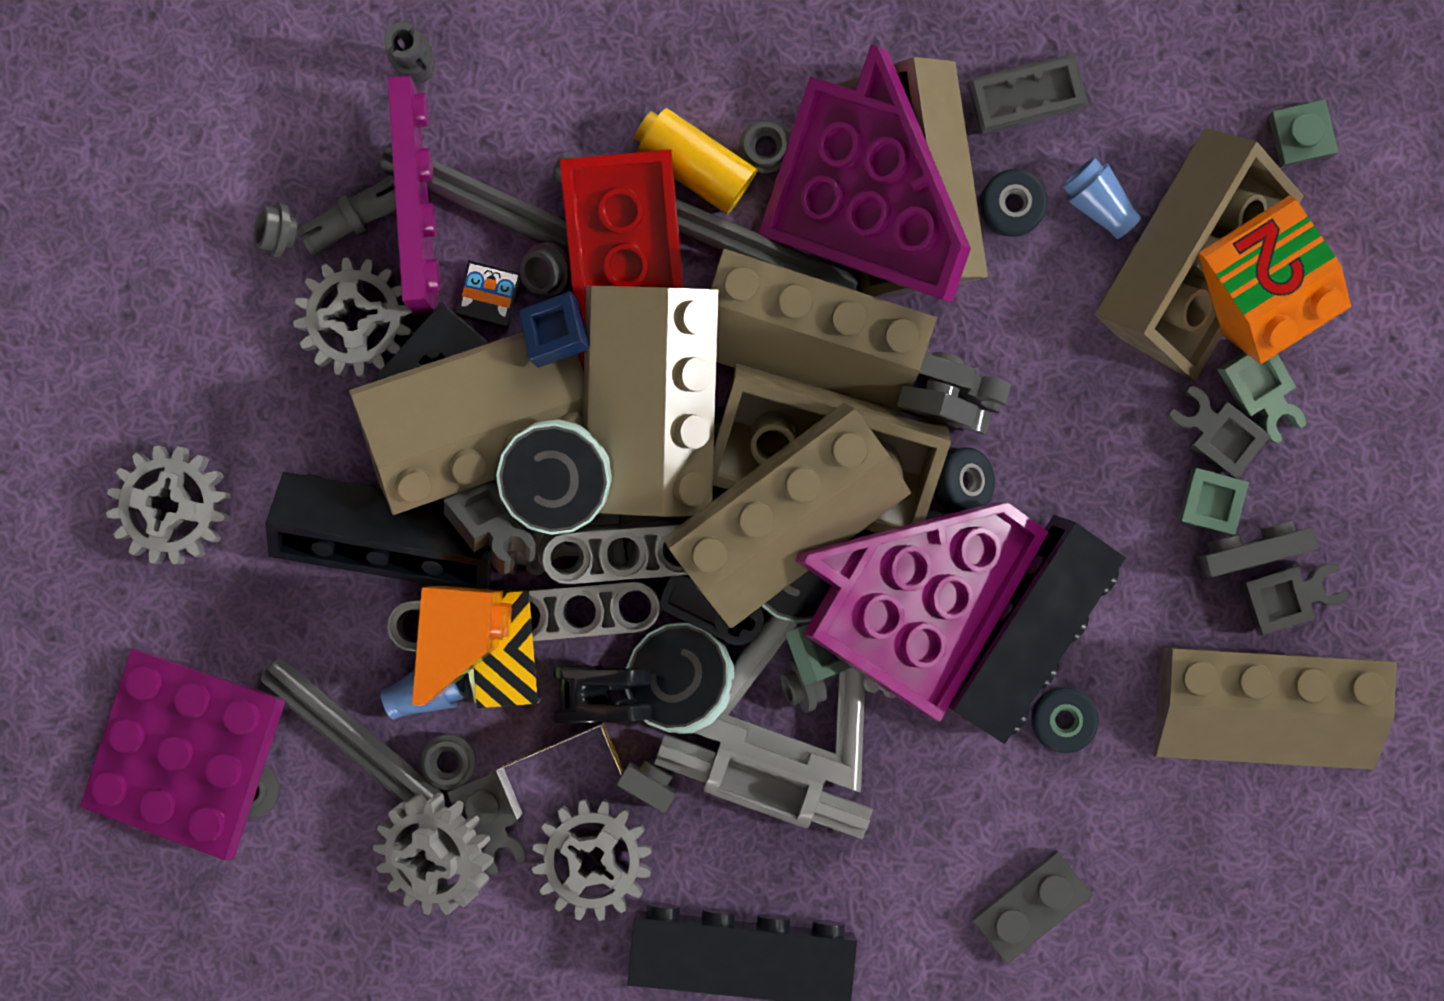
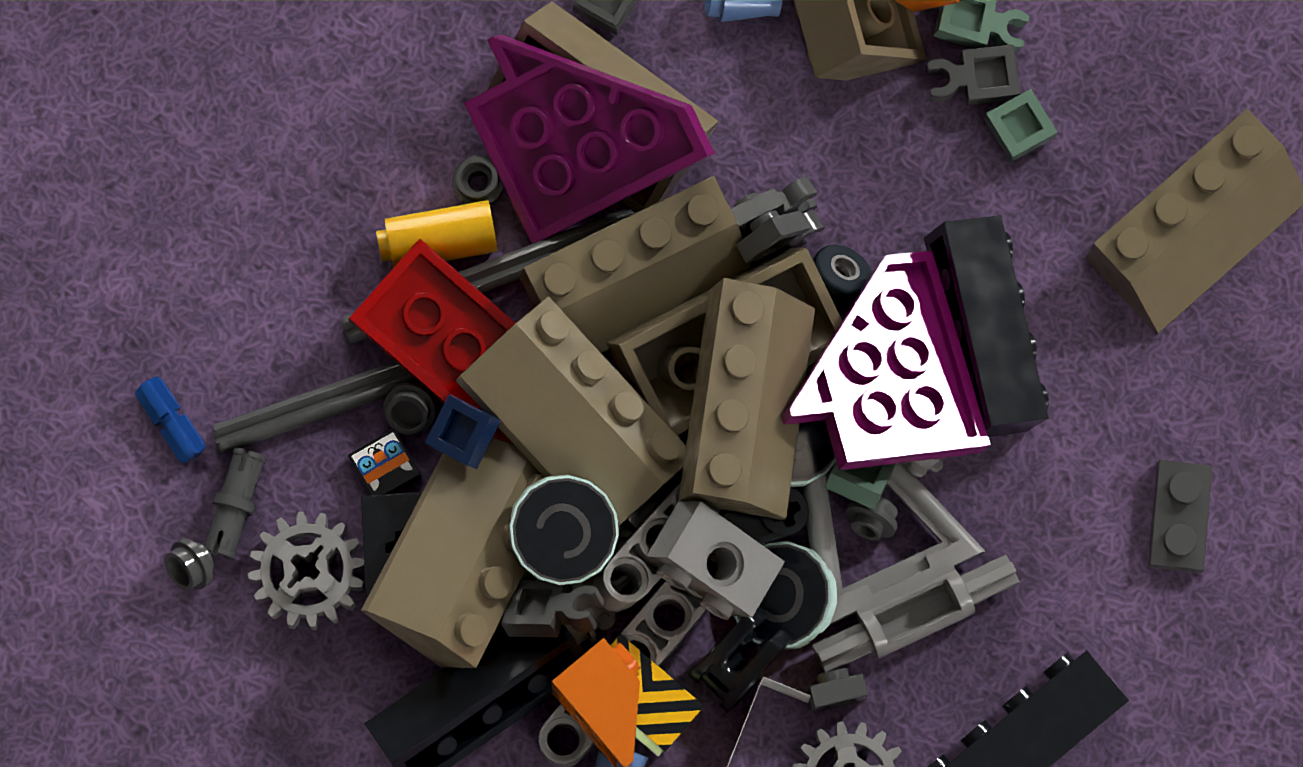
camera: 45 degrees left, 10 degrees down
(369, 94) = (163, 410): none -> blue piece
(414, 213) = (291, 451): magenta wing -> none
(415, 48) = (170, 348): dark grey pin -> none
(643, 577) = (743, 569): none -> light grey brick
(1019, 183) = (685, 39): black wheel -> none
(1084, 723) = (1076, 350): black wheel -> none
(1277, 543) = (1090, 109): dark grey plate -> none
(1286, 599) = (1135, 142): dark grey plate -> none

